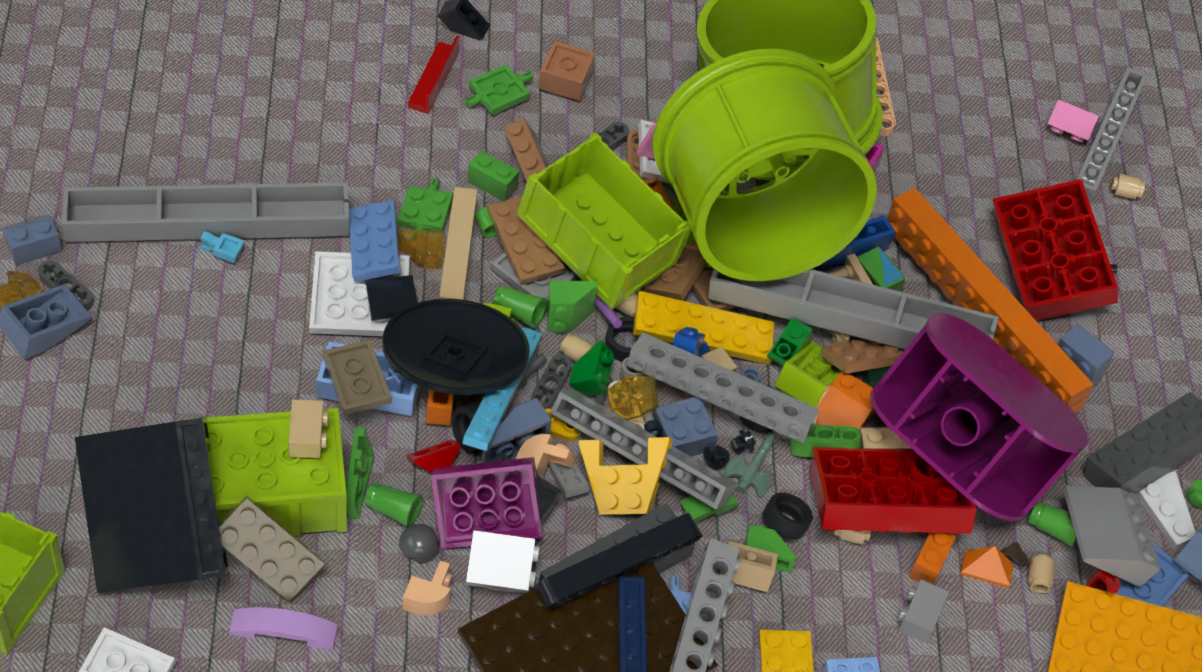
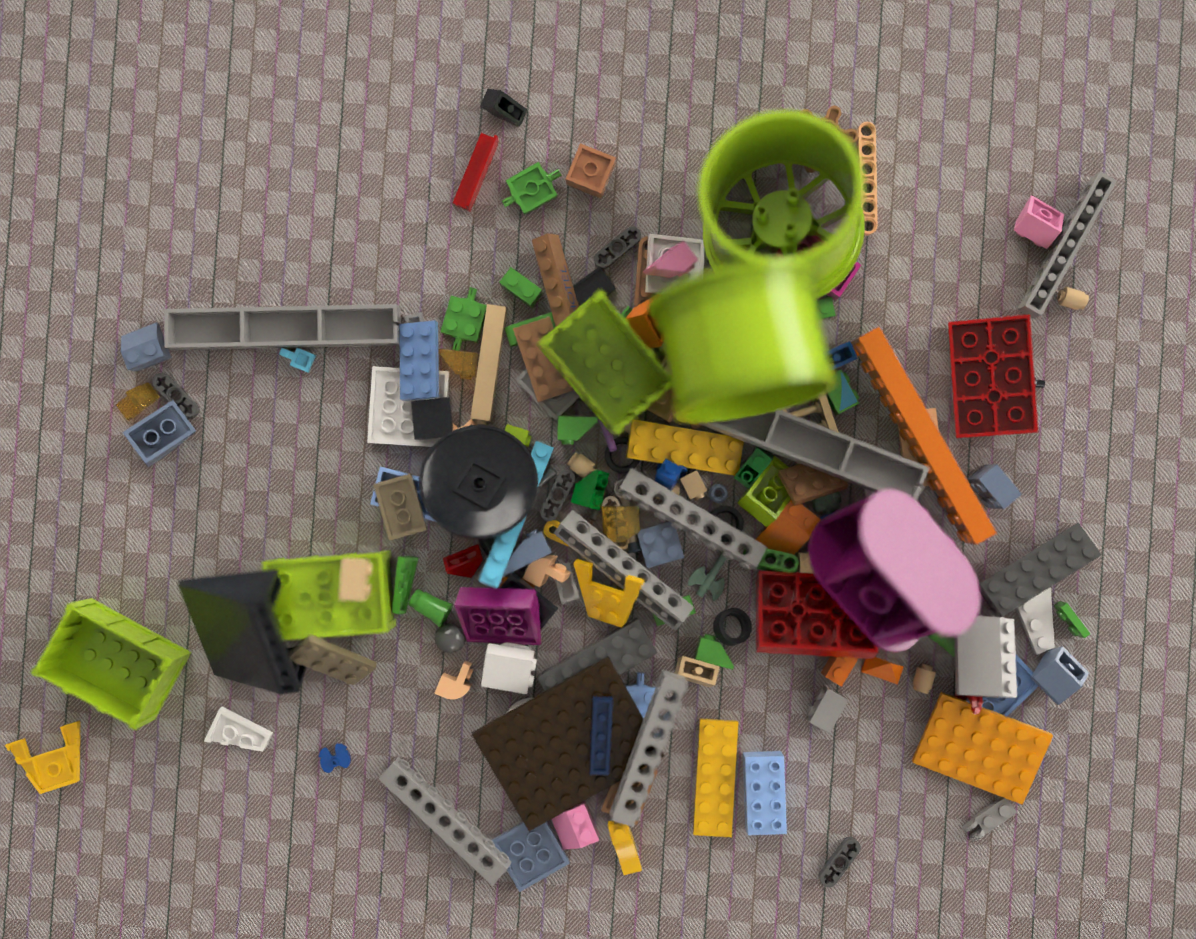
camera: 10 degrees right, 35 degrees up
(284, 624) = (349, 707): lavender slope -> none
(524, 306) = (536, 422): bright green plant -> none
(618, 561) = (594, 688): black beam -> none
(716, 458) = (683, 570): black plate -> none
(743, 442) = (707, 554): black plate -> none
(1016, 552) = (906, 661): dark brown slope -> none

